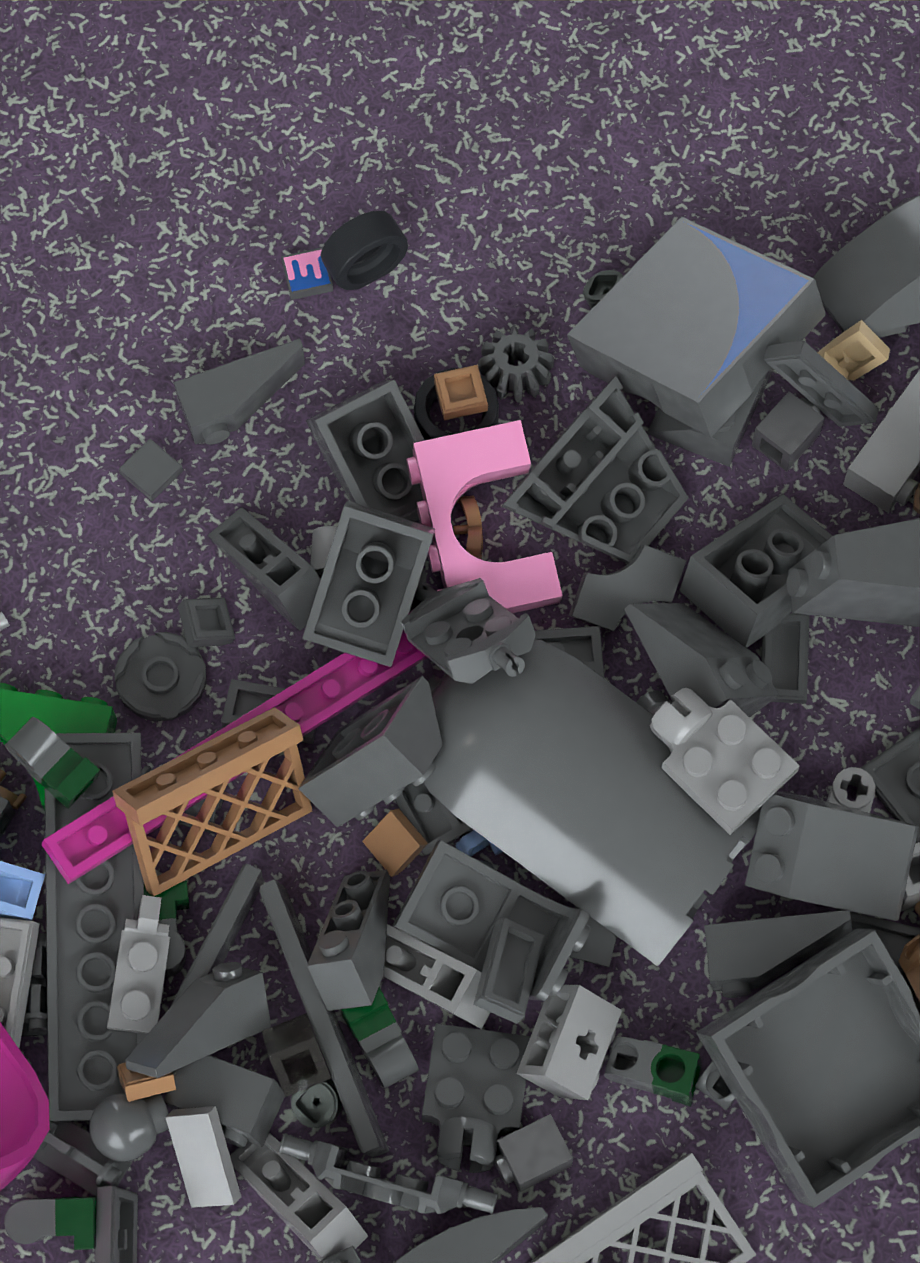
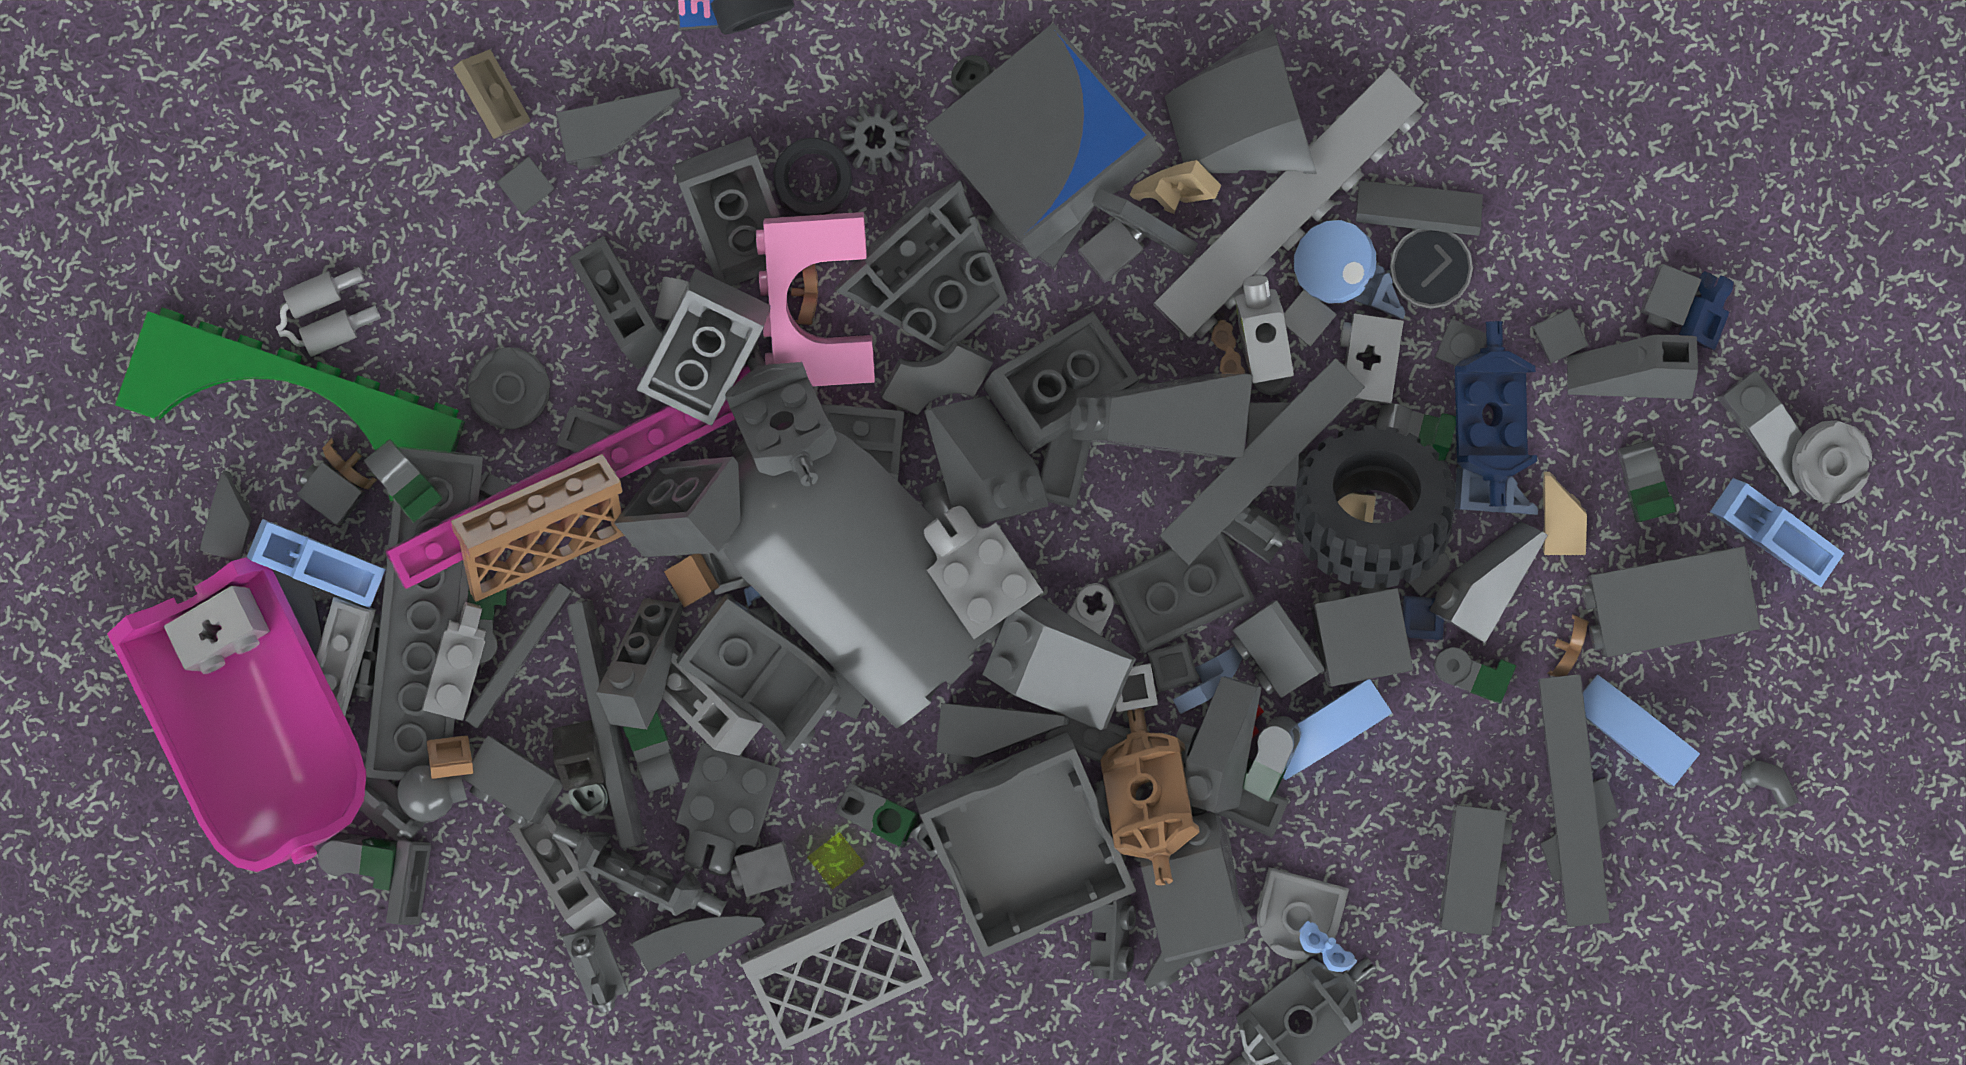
camera: 10 degrees right, 20 degrees up
(102, 383) = (491, 94): none -> dark tan plate
(203, 1156) = (489, 828): light grey tile -> none
(204, 1020) = (503, 719): dark grey slope -> none
(206, 622) = (556, 345): dark grey tile -> none
(460, 392) = (817, 167): medium nougat tile -> none
(509, 970) = (767, 719): dark grey tile -> none
(570, 1042) = (810, 784): light grey brick -> none
(615, 1133) = (836, 860): none -> clear neon green tile

